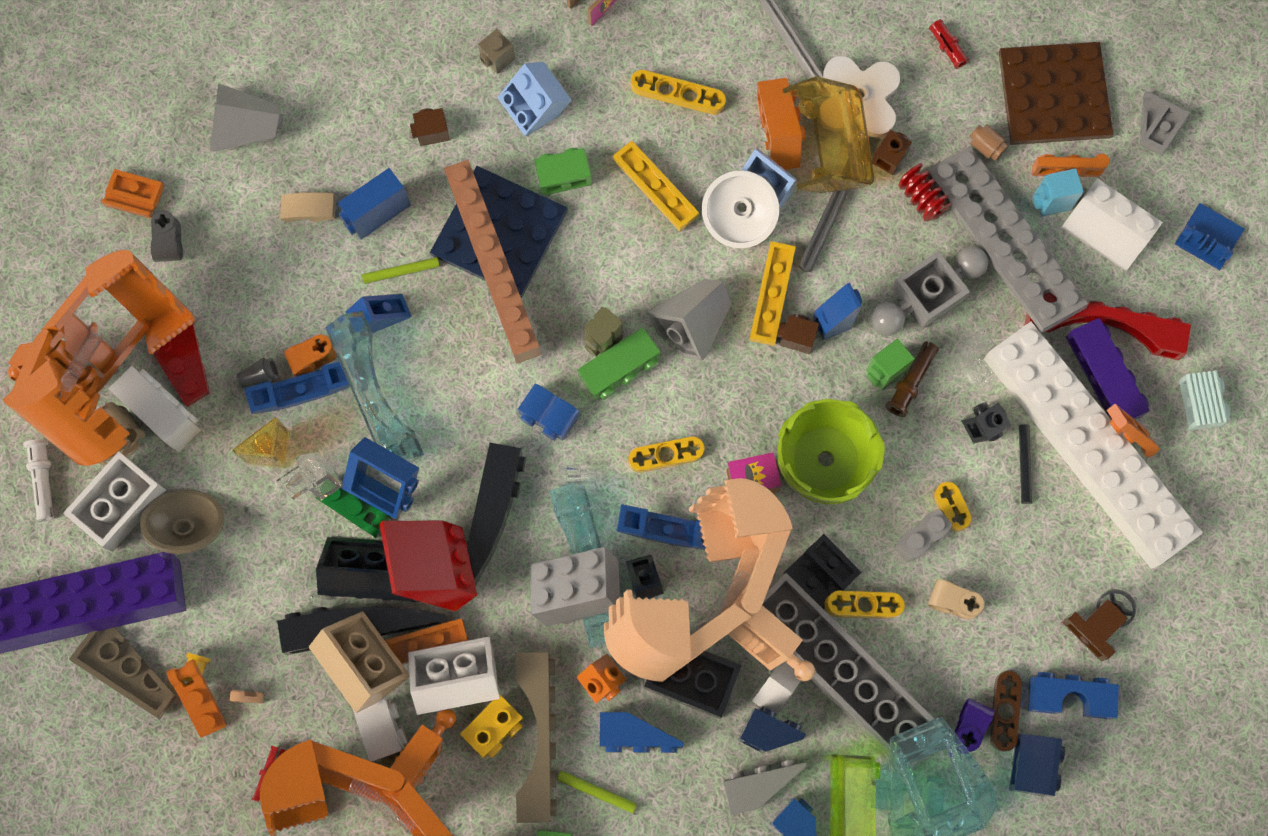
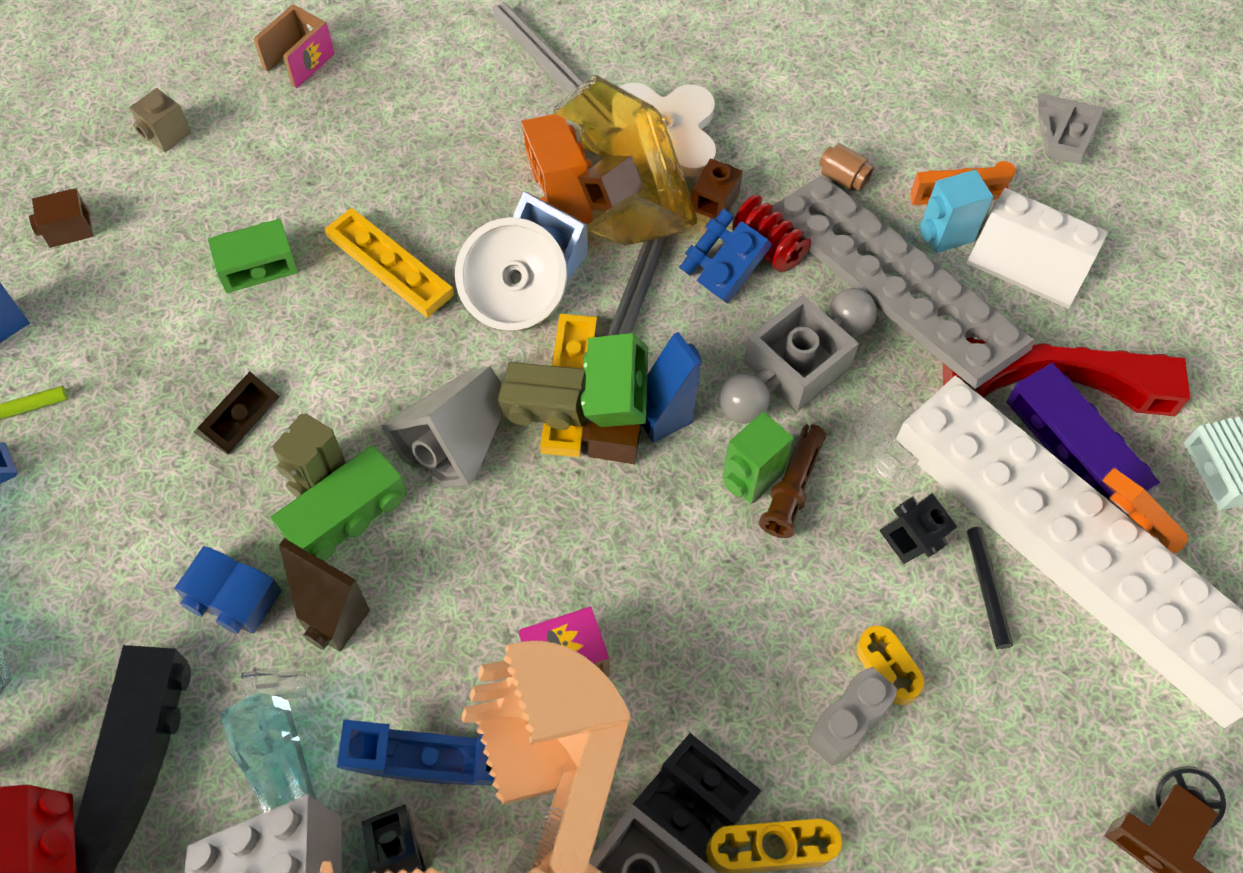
camera: 10 degrees left, 15 degrees down
(492, 262) = (140, 382): nougat brick -> none
(522, 222) = (158, 345): dark blue plate -> none
(534, 97) = (212, 169): light blue slope -> none
(551, 289) = (237, 413): none -> dark brown slope
(609, 426) = (323, 598): none -> dark brown slope
(645, 451) = (406, 626): yellow beam -> none
(679, 88) = (417, 145): yellow beam -> none
(756, 305) = (543, 395): none -> olive brick
(804, 304) = (615, 380): none -> bright green brick
(817, 148) = (610, 182): none -> reddish brown brick
(833, 429) = (688, 563): lime piece -> none
(895, 214) = (734, 260): none -> blue plate
(948, 43) = (785, 78): red pin -> none
(951, 598) = (917, 818): tan piece -> none
(1055, 93) = (922, 109): reddish brown plate -> none
(1209, 236) = (1172, 253): blue hinge -> none

